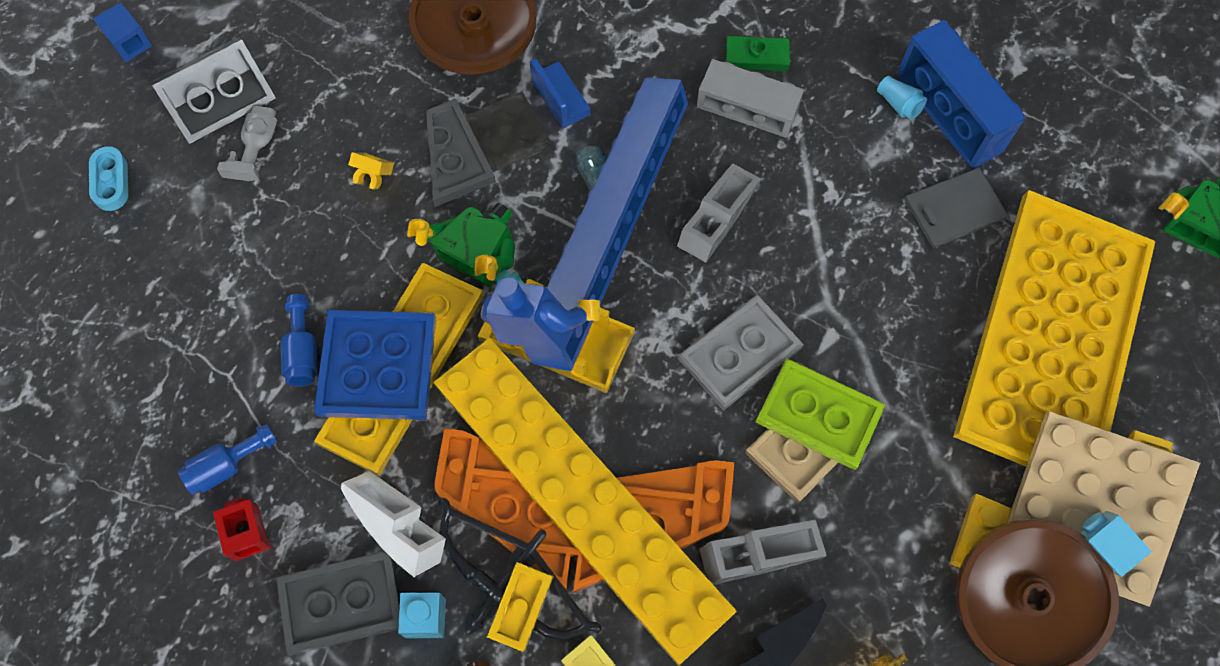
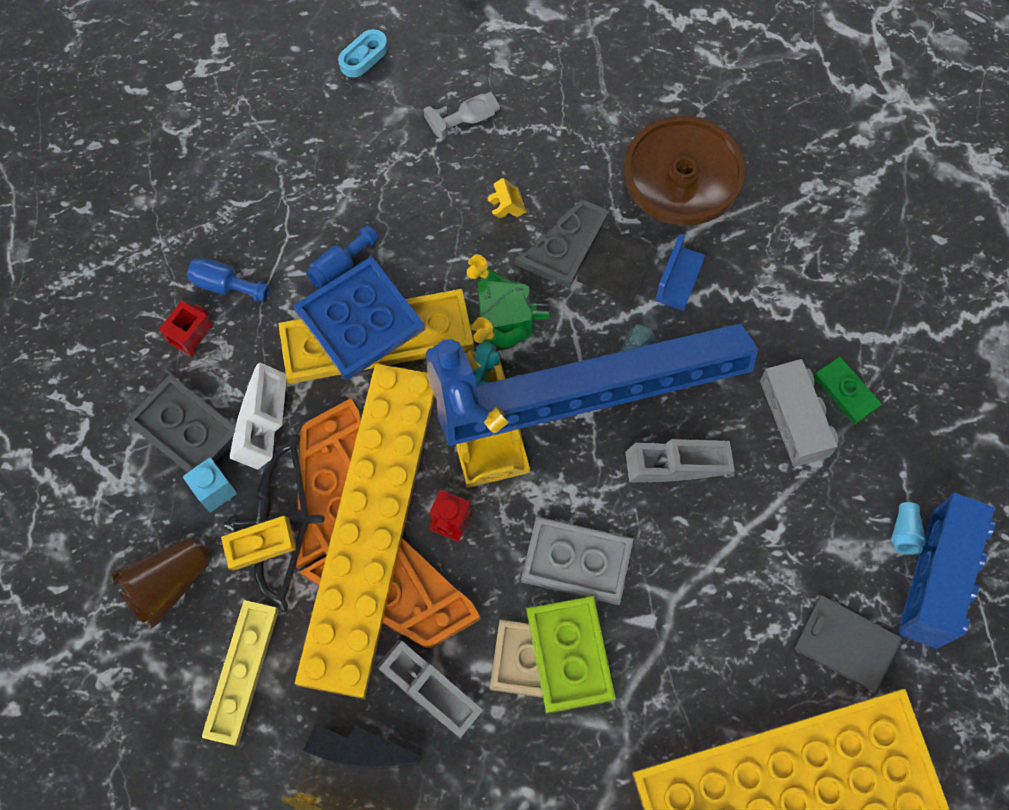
camera: 55 degrees right, 0 degrees up
(213, 89) = (480, 58): slope -> none
(624, 422) = (449, 515): none -> red brick

